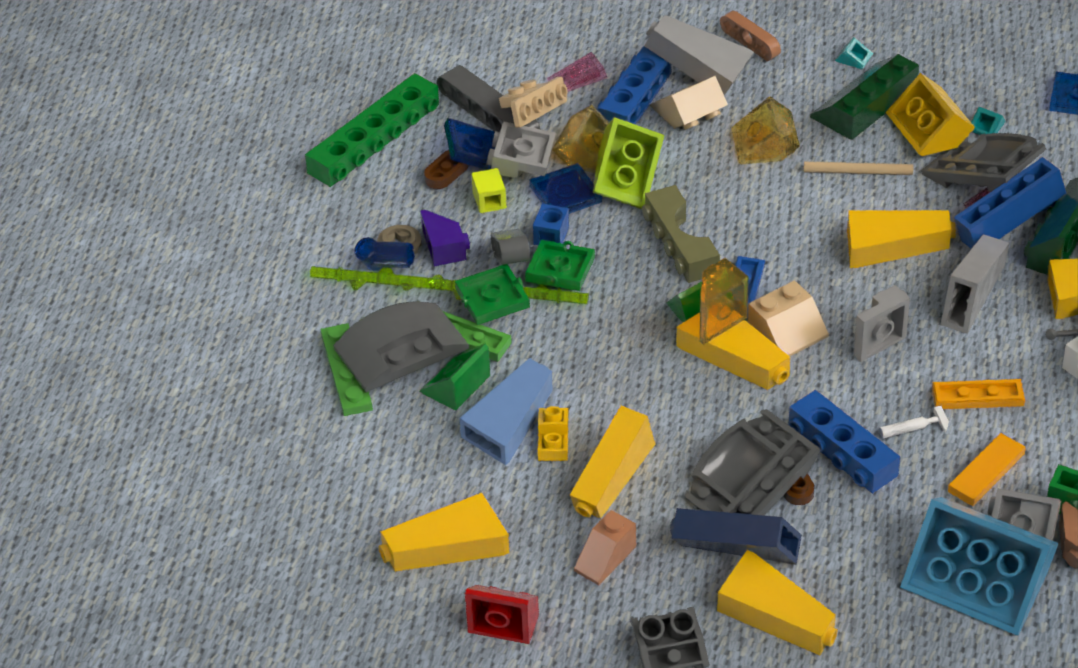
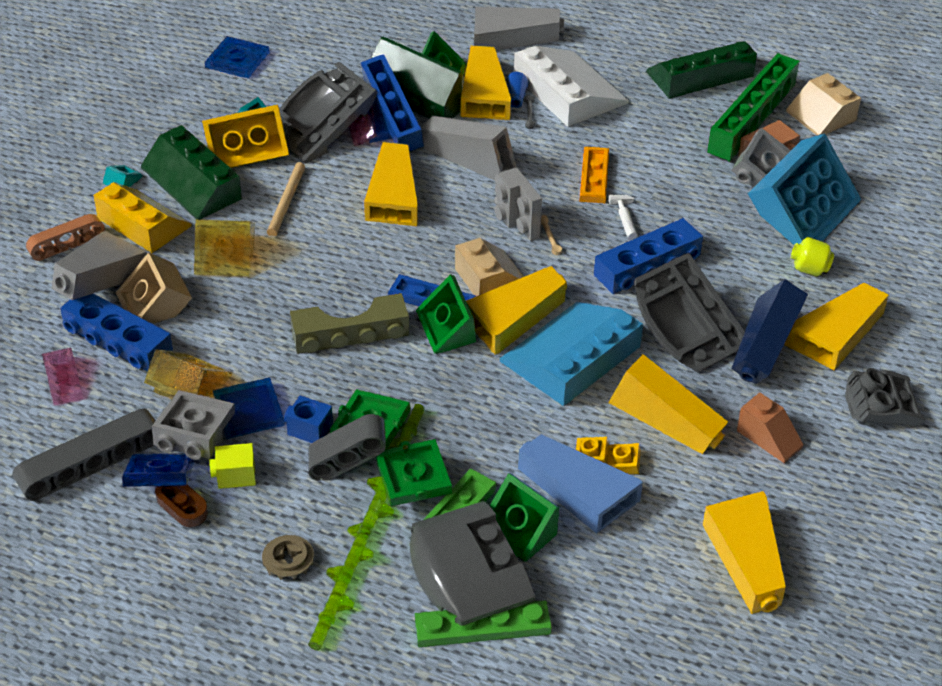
camera: 85 degrees left, 0 degrees up
(372, 130) = (91, 564): green brick -> none
(385, 254) = (322, 562): clear blue piece -> none
(444, 238) = (299, 513): dark purple slope -> none
(501, 613) = (854, 508): red slope -> none
(534, 100) = (114, 404): tan bracket -> none
(627, 162) = (238, 345): lime slope -> none
(685, 395) = (575, 349): none -> dark azure slope
(722, 299) = (494, 285): clear yellow slope -> none
(795, 73) = (138, 216): none -> yellow slope
(844, 375) = (556, 249): none -> tan hinge
(882, 579) = (812, 256): none -> neon yellow head
(986, 469) = (683, 184): light orange tile -> none

